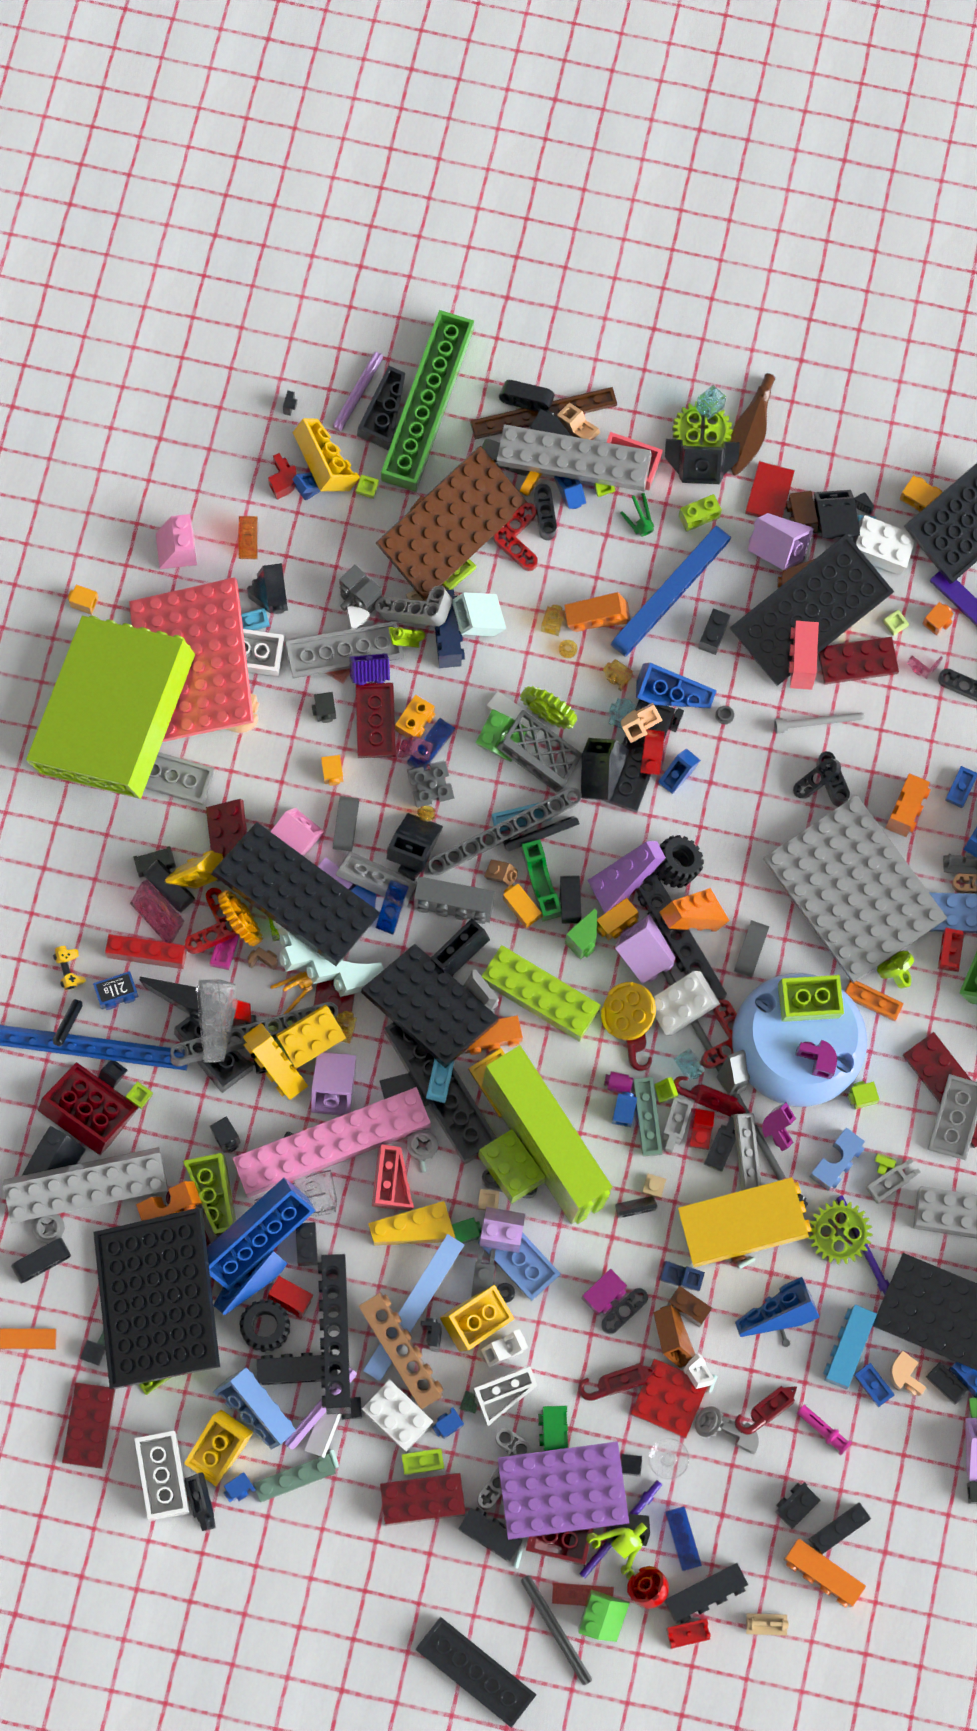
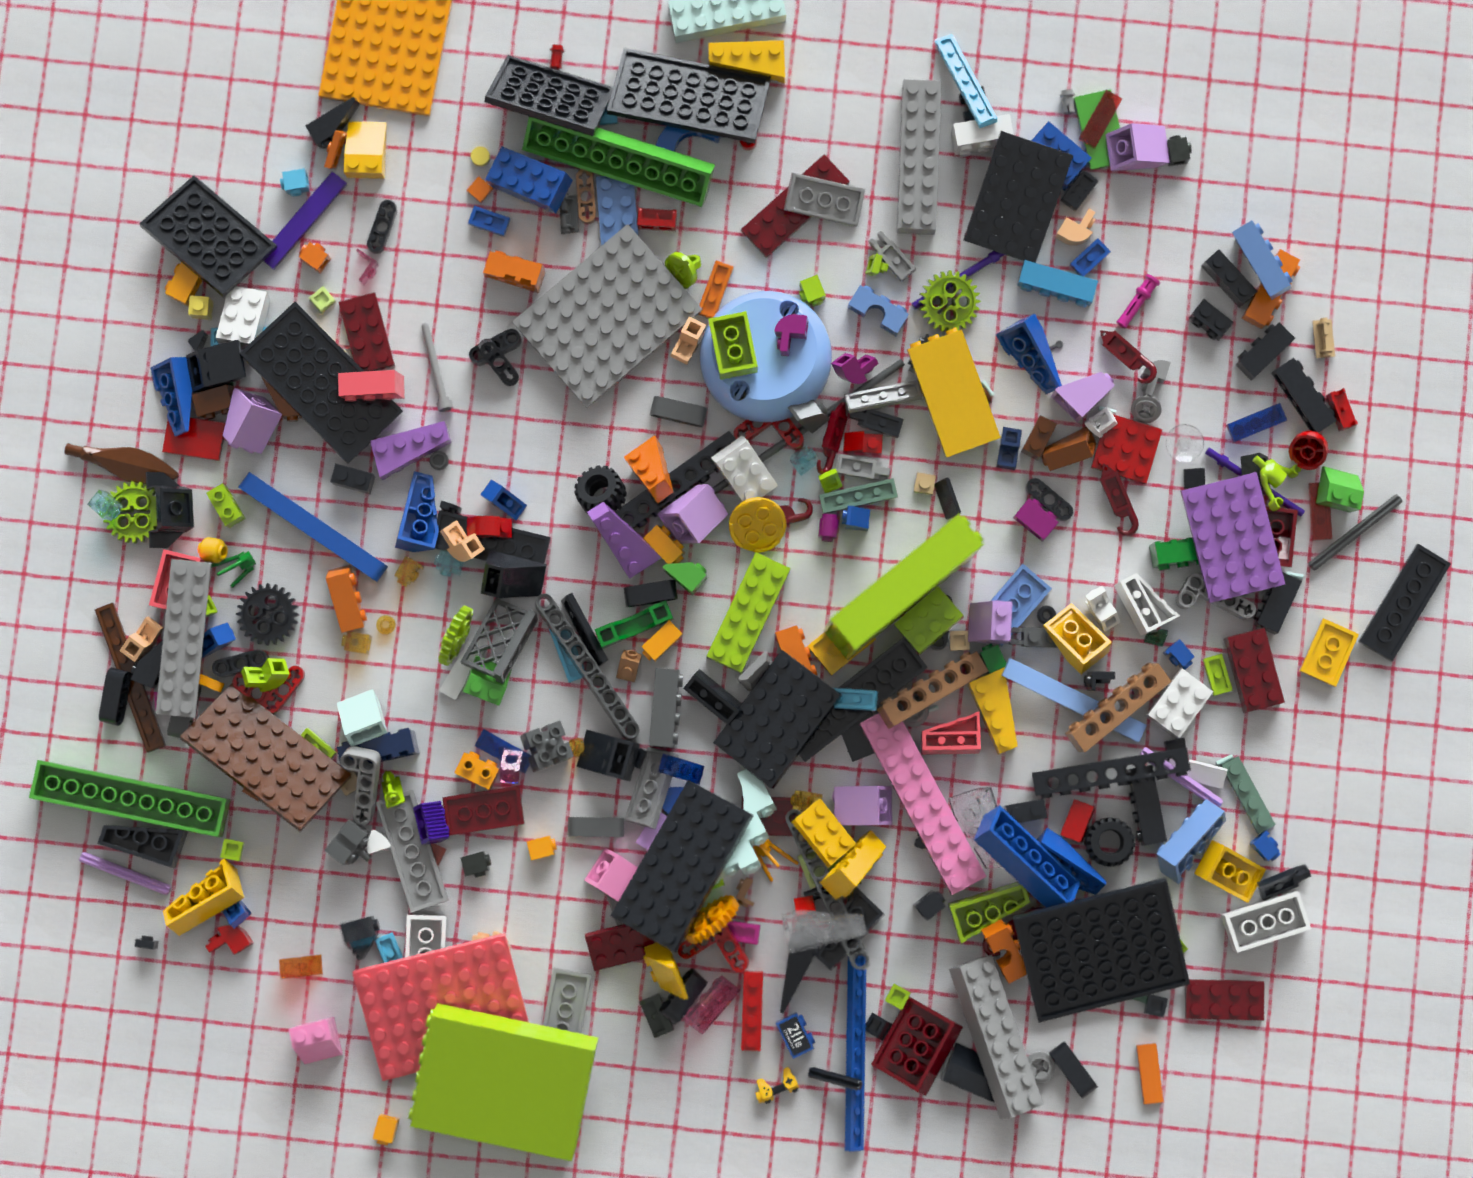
camera: 90 degrees left, 10 degrees up
(417, 1118) = (974, 668): none -> medium nougat brick
(432, 1583) = (1329, 652): none -> yellow plate
(528, 533) = (268, 677): none -> lime brick
(606, 535) = (275, 629): none -> black gear
(658, 497) = (212, 550): none -> yellow head
(729, 1357) = (1083, 395): none -> lavender slope
(738, 679) = (408, 447): none -> medium lavender wedge
(759, 1557) = (1264, 350): none -> black brick
(821, 964) = (688, 340): none -> light nougat brick
(827, 476) = (174, 384): none -> blue wedge
(855, 1561) = (1262, 260): none -> medium blue wedge
(896, 508) = (200, 307): none -> light yellow brick

